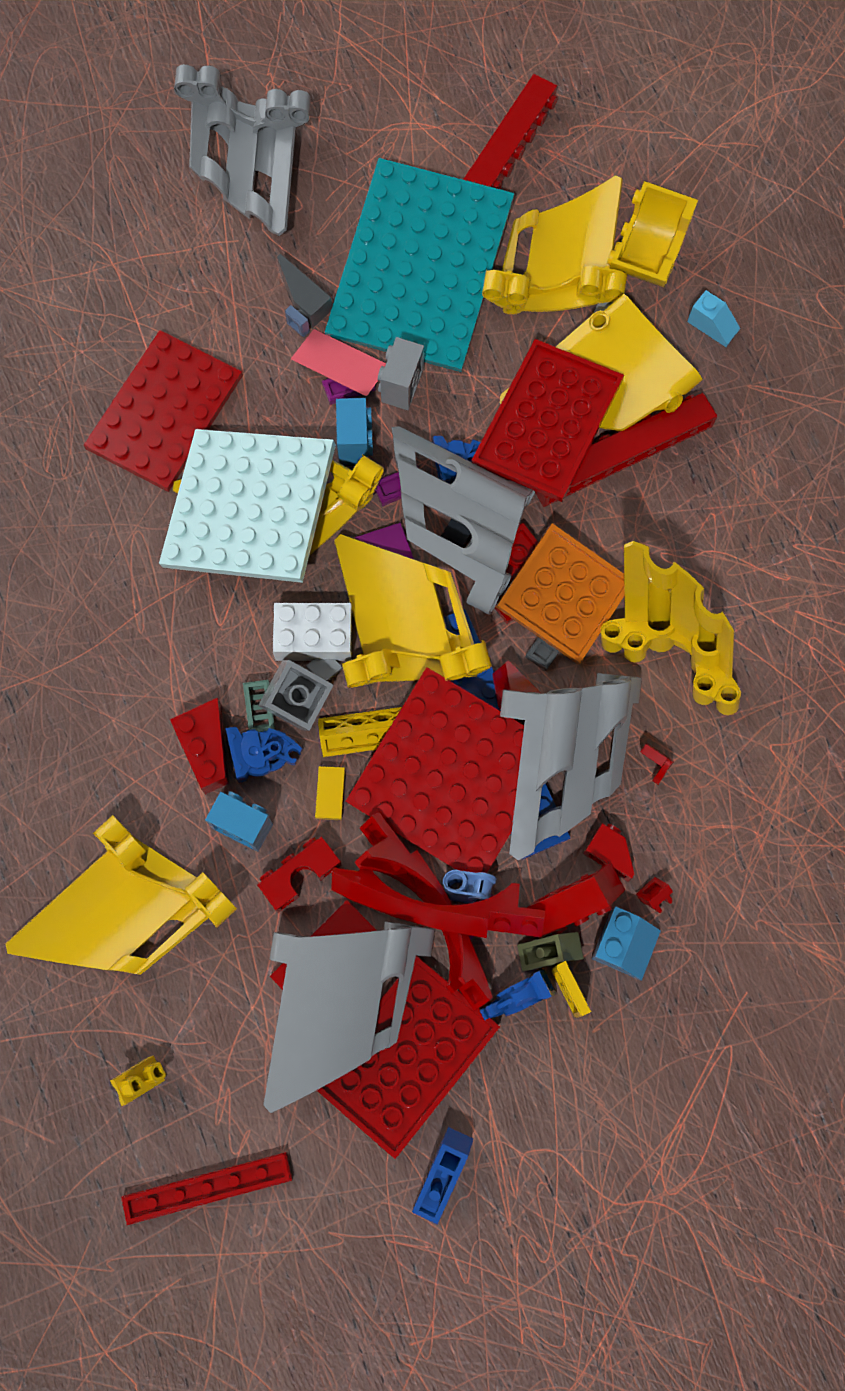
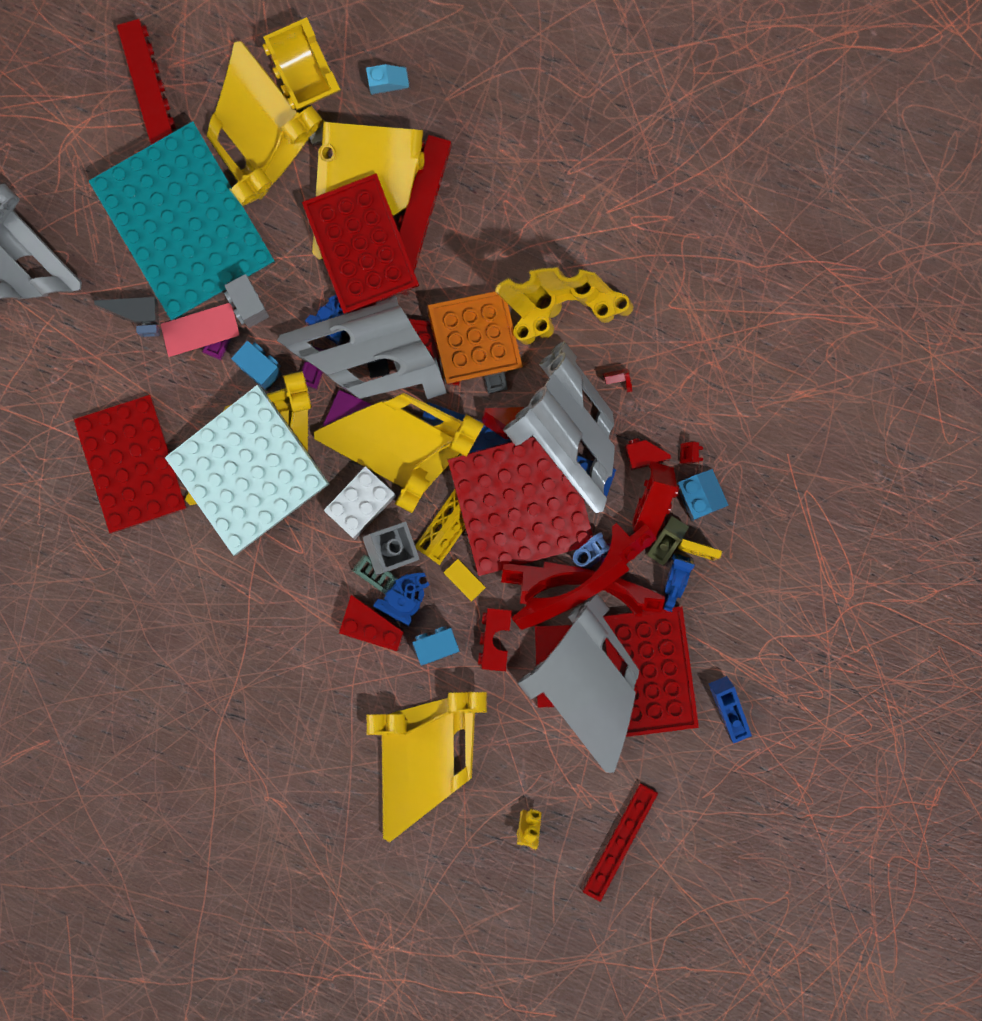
camera: 45 degrees left, 10 degrees up
(324, 668) = (387, 516): light grey tile -> none

